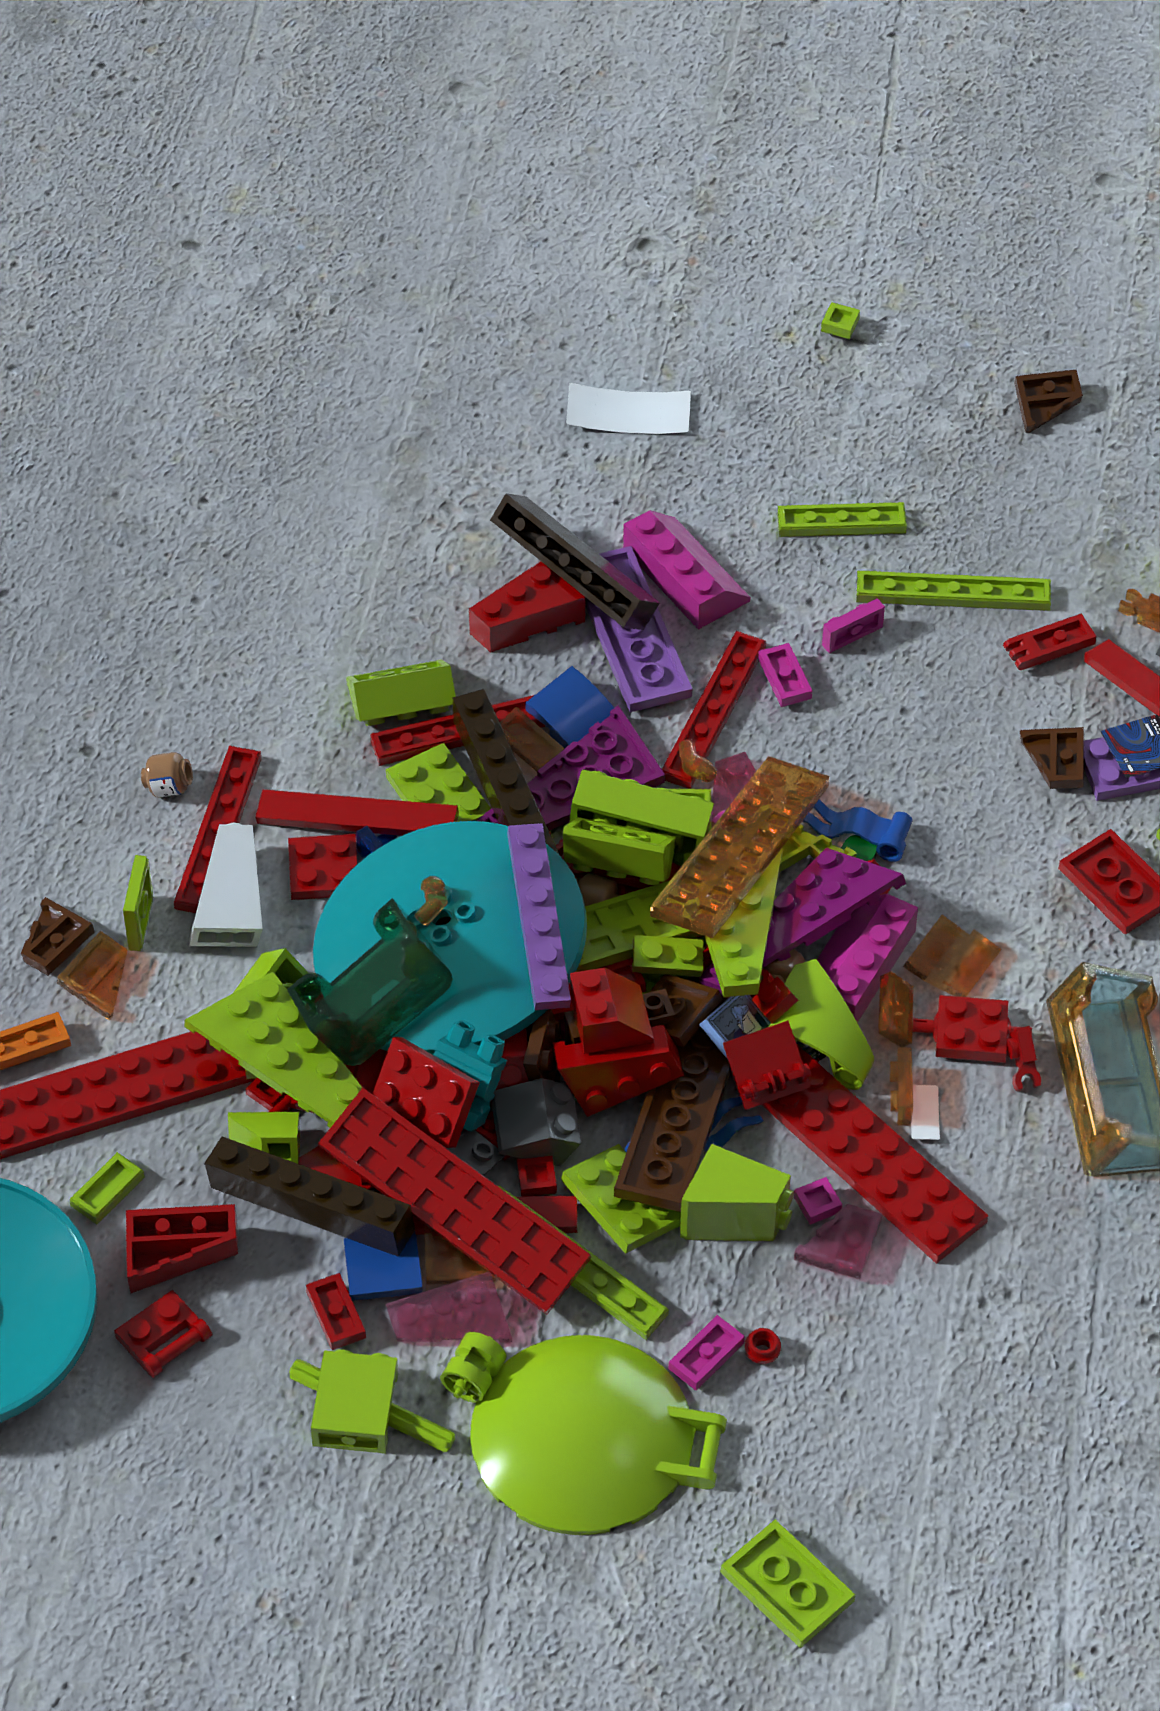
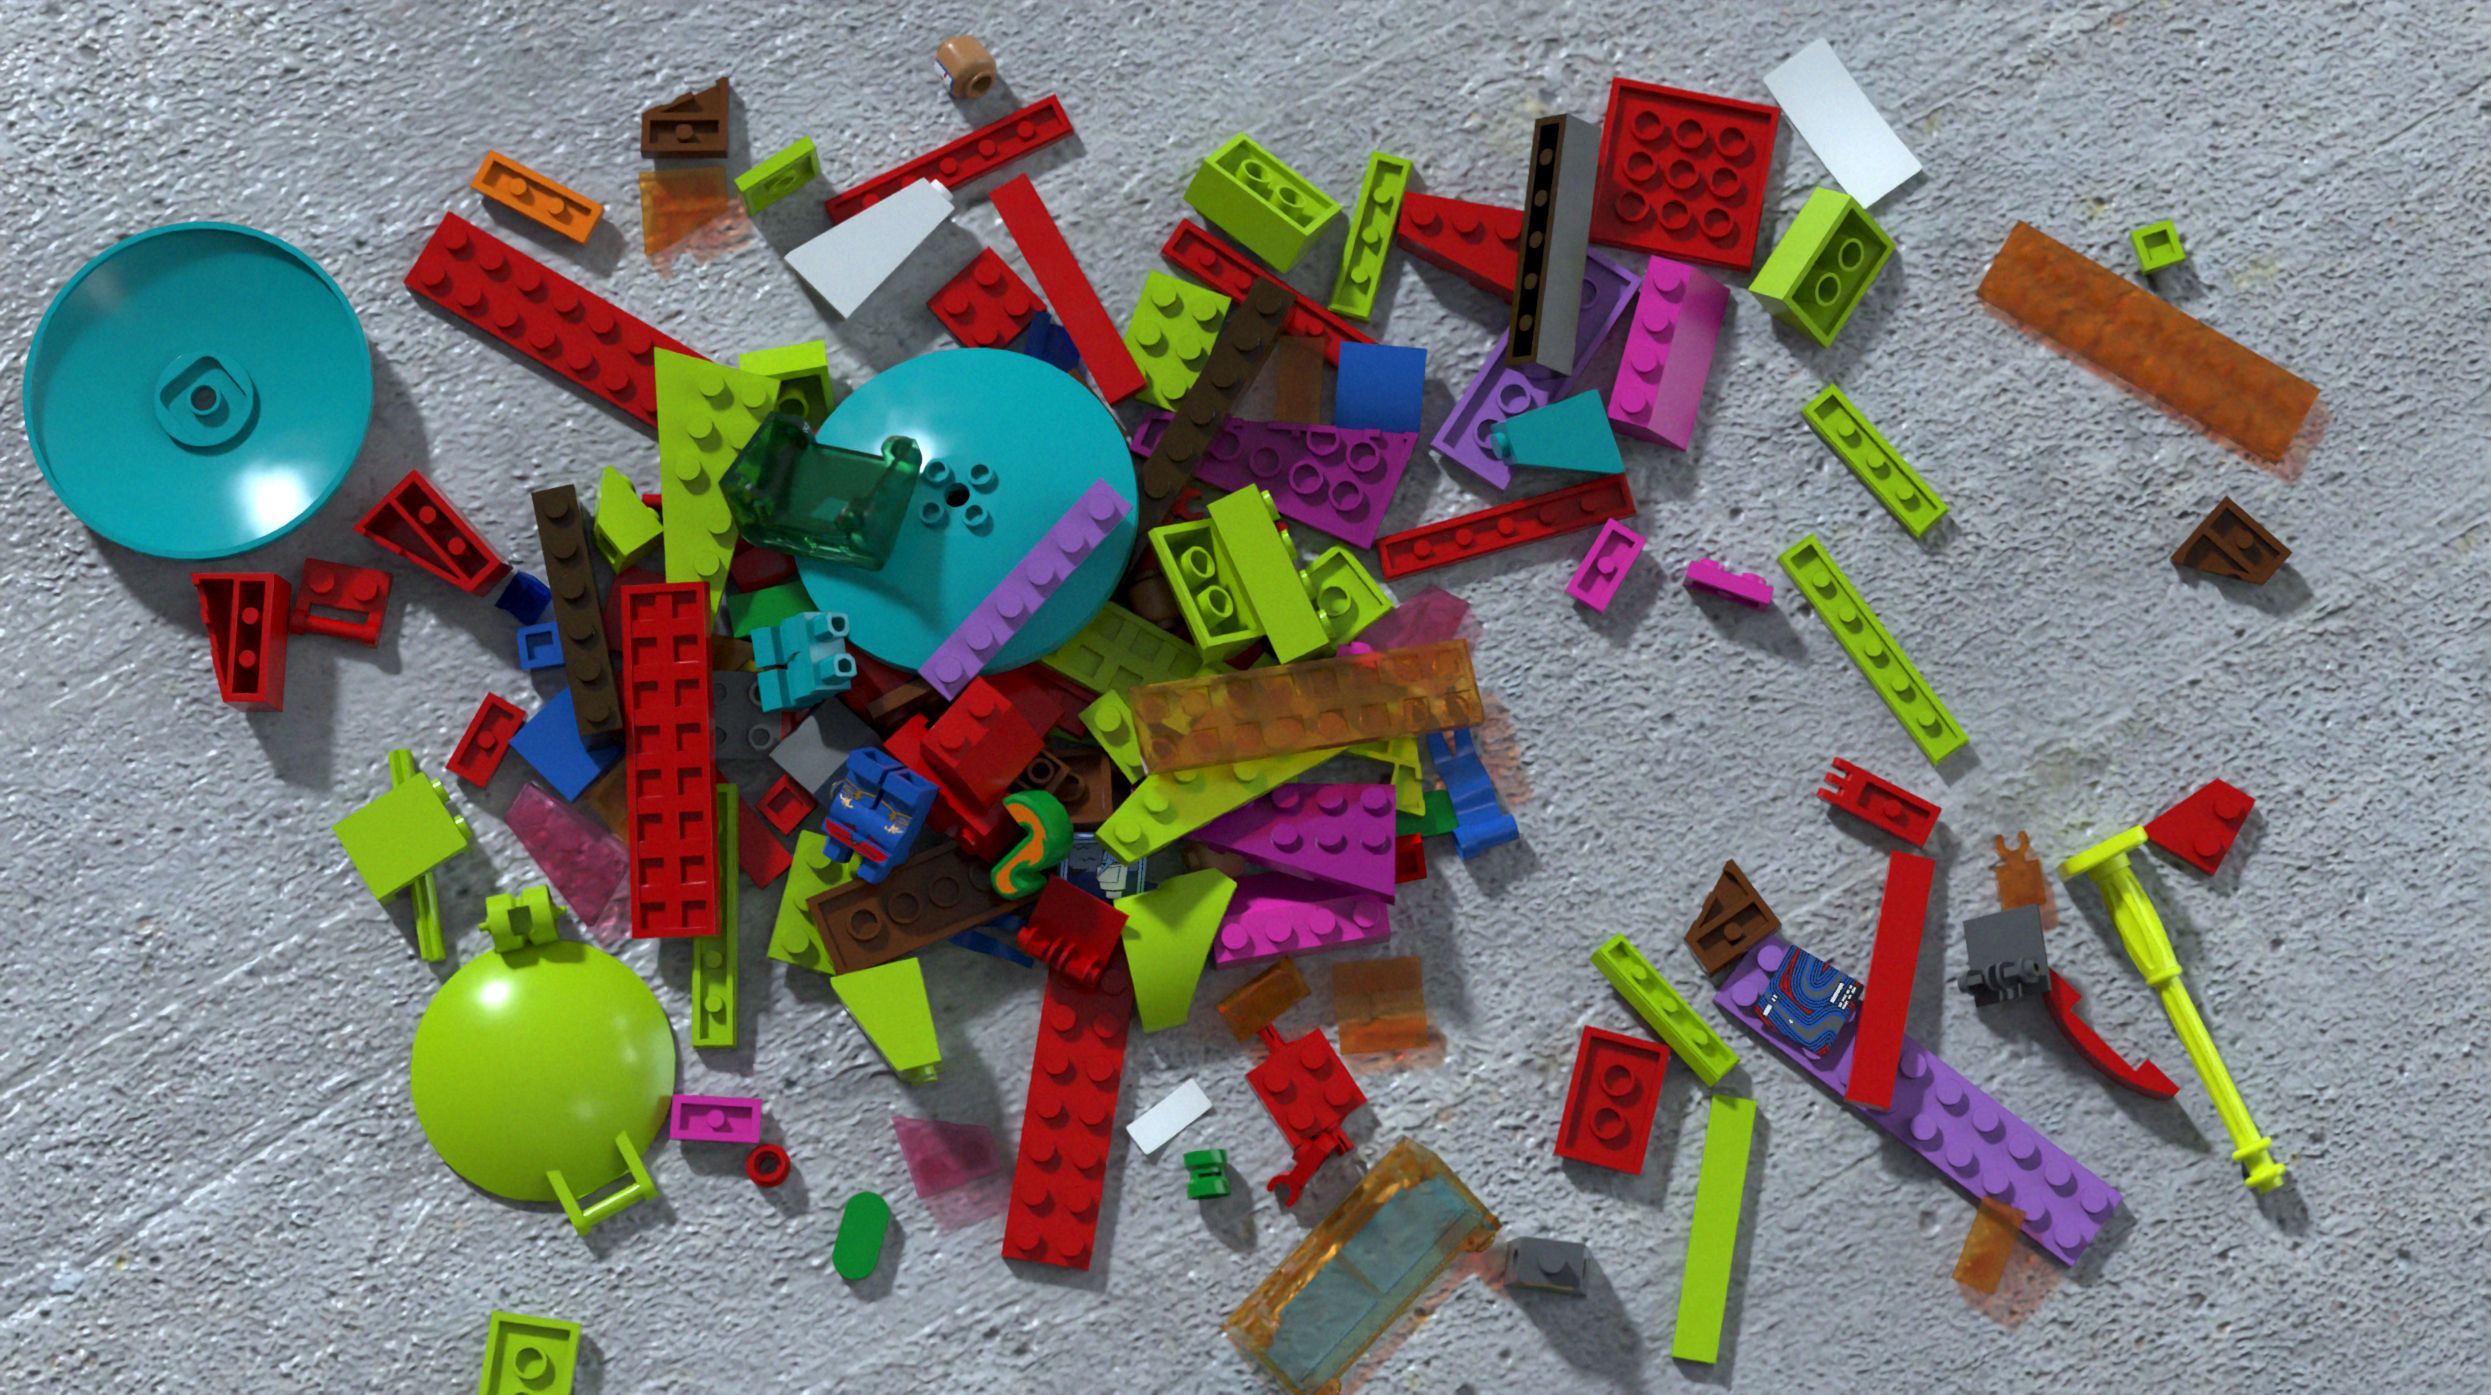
camera: 50 degrees right, 25 degrees up
(107, 1188) = (456, 417): lime tile -> none
(132, 1392) = (247, 636): none -> red wedge
(261, 1229) = (524, 598): none -> clear blue slope
(303, 1239) = (539, 647): none -> blue plate
(426, 1091) = (754, 639): red plate -> none
(435, 898) = (962, 474): clear orange arm -> none
(472, 657) = (1370, 237): none -> lime tile
(589, 489) = (1682, 174): none -> red tile
(603, 1113) = (877, 813): none -> blue hips
(691, 636) = (1560, 437): none -> teal slope
(694, 764) = (1404, 570): clear orange arm -> none
(703, 464) = (1822, 266): none -> lime slope
(704, 1035) = (1045, 846): none -> green animal
(773, 997) = (1155, 878): red plate -> none
(817, 1200) = (973, 1093): dark pink plate -> none
(855, 1327) = (861, 1236): none -> green tile
(889, 361) = (2147, 342): none -> clear orange plate
(902, 1098) = (1188, 1063): clear orange plate -> none
(982, 1111) = (1206, 1164): none -> green wheel
(1084, 818) = (1664, 1009): none -> lime tile

